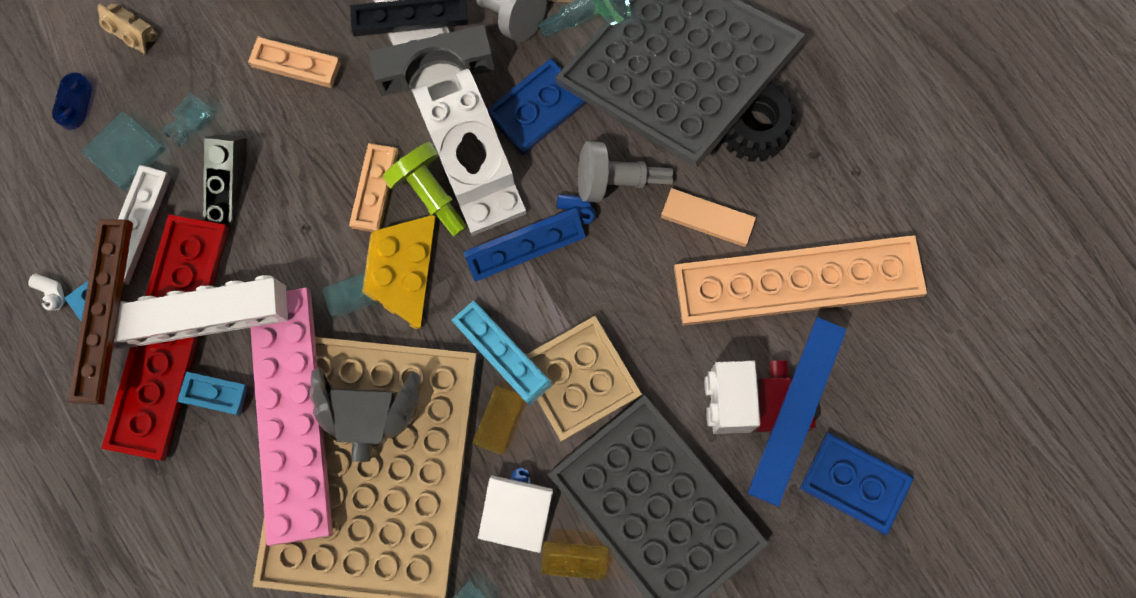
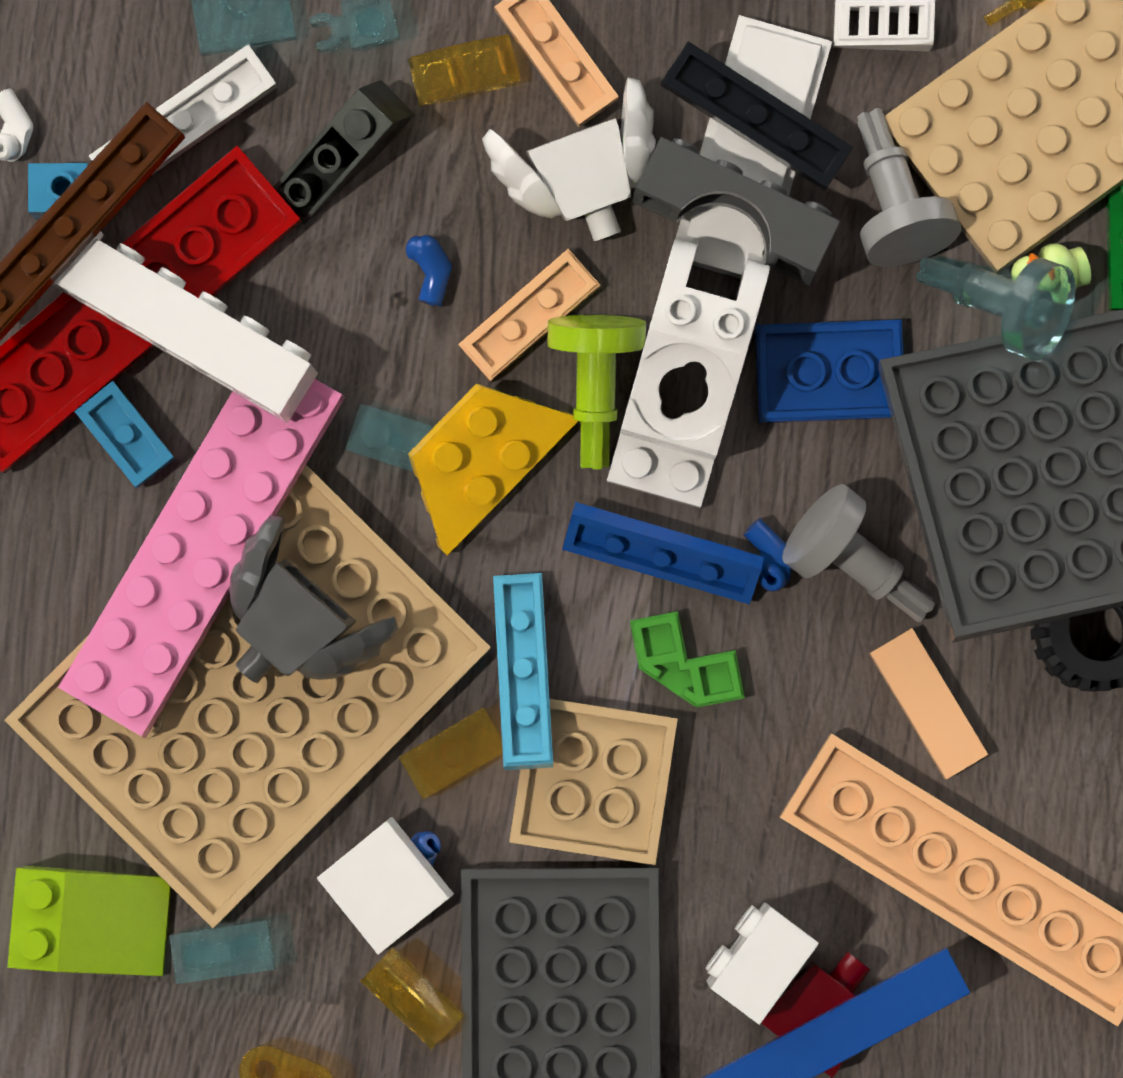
camera: 35 degrees right, 10 degrees up
(252, 103) = (464, 69): none -> clear yellow slope
(310, 198) = (434, 264): none -> blue arm
(345, 101) = (582, 169): none -> white torso
(566, 295) = (664, 658): none -> bright green tile

